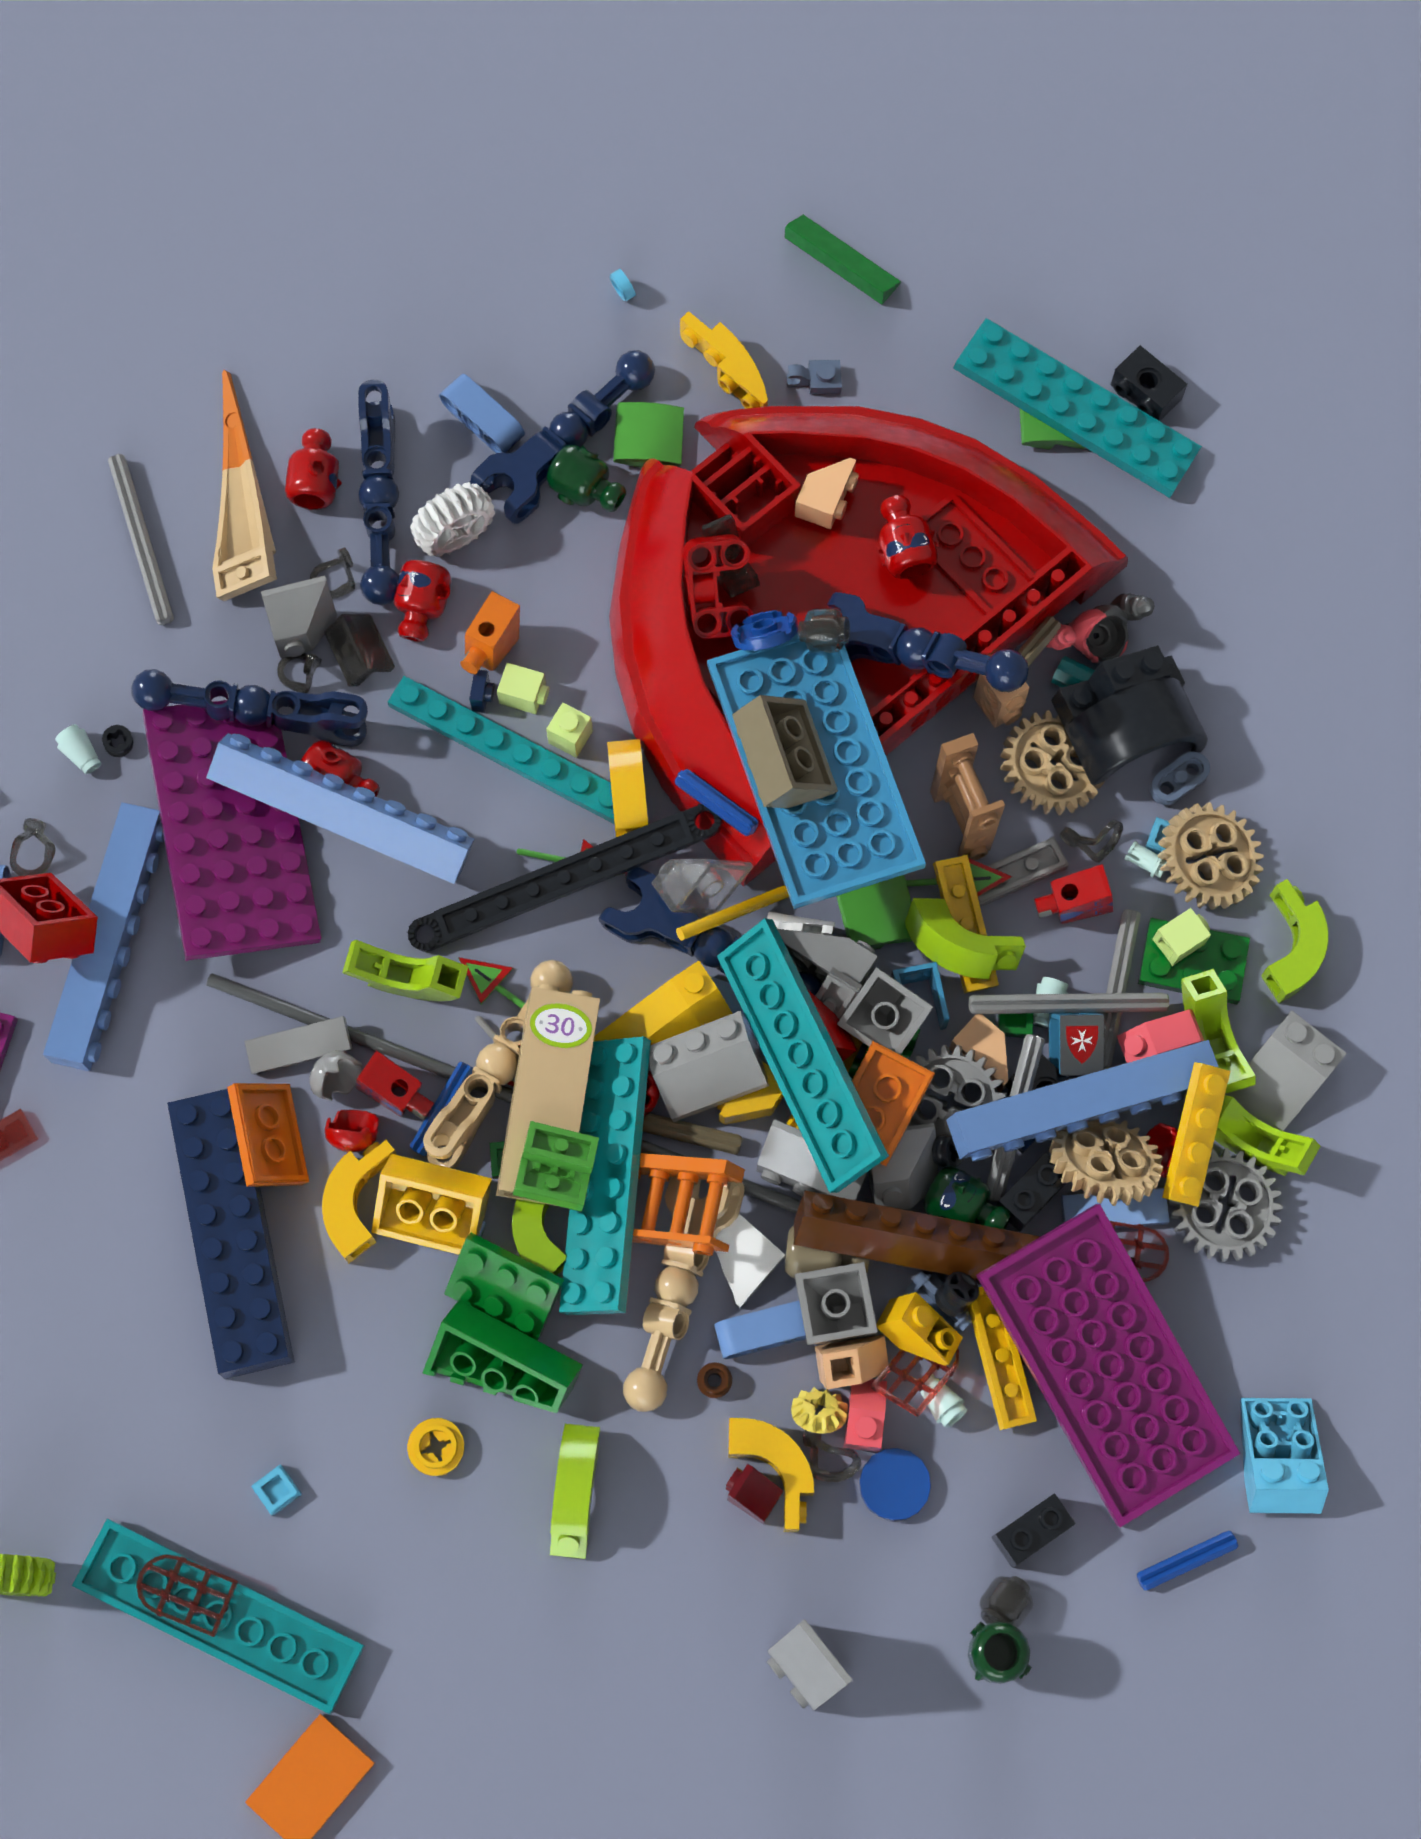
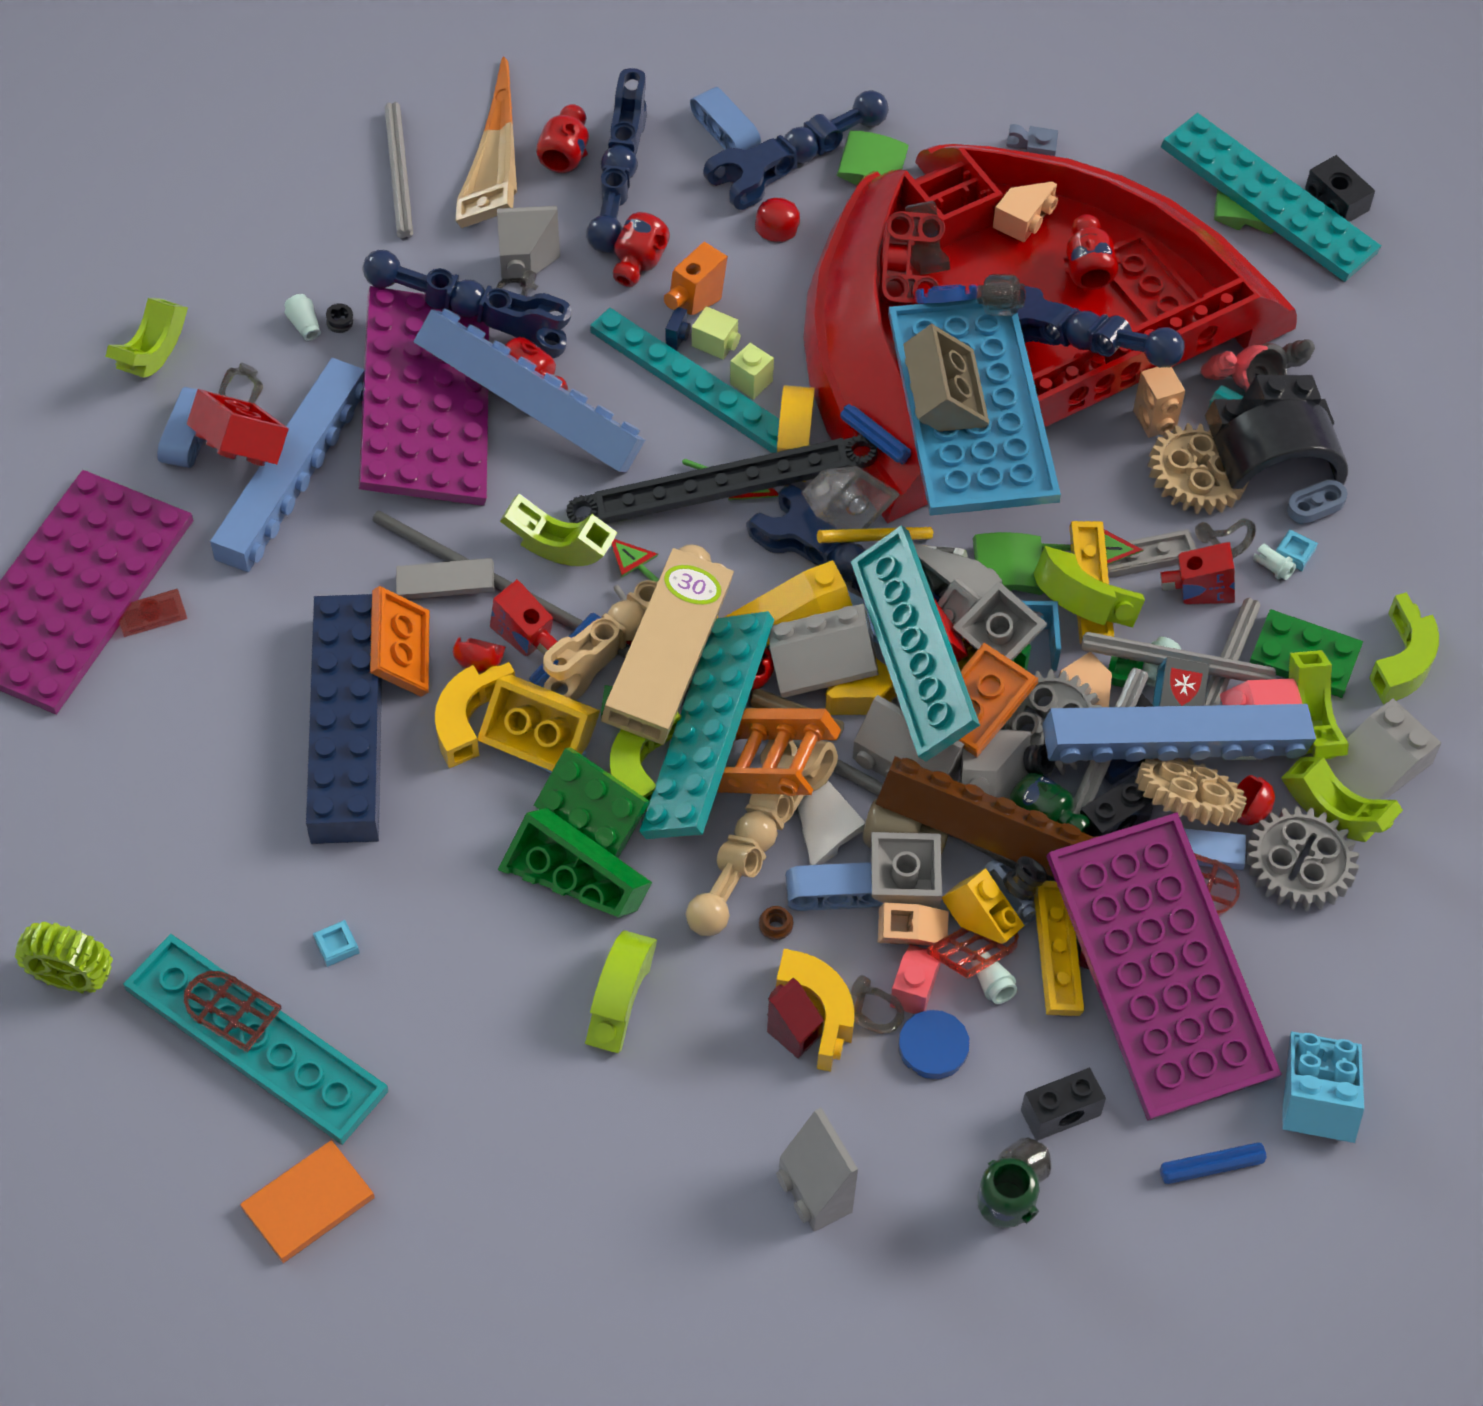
camera: 10 degrees right, 15 degrees down
(334, 1073) = (472, 605): light grey hair -> none
(344, 559) = (577, 210): clear smoke piece -> none
(358, 647) = (573, 277): clear smoke panel -> none
(421, 1439) = (482, 925): yellow gear -> none
(452, 519) = (681, 189): white gear -> none
(555, 1166) = (663, 695): bright green slope -> none
(561, 529) = (777, 219): none -> red hair
(583, 478) = (806, 180): dark green piece -> none
(622, 285) = (872, 45): medium azure tile -> none
(734, 365) = (954, 106): yellow slope -> none
(828, 1420) = (872, 963): light yellow gear -> none
(841, 258) = (1074, 57): green slope -> none
(959, 785) = (1108, 464): medium nougat fence -> none
(1039, 639) = (1190, 362): dark tan axle -> none
(1182, 936) = (1296, 621): yellowish green brick -> none
(1196, 1134) = (1282, 781): yellow plate -> none
(1220, 884) = (1335, 566): tan gear -> none

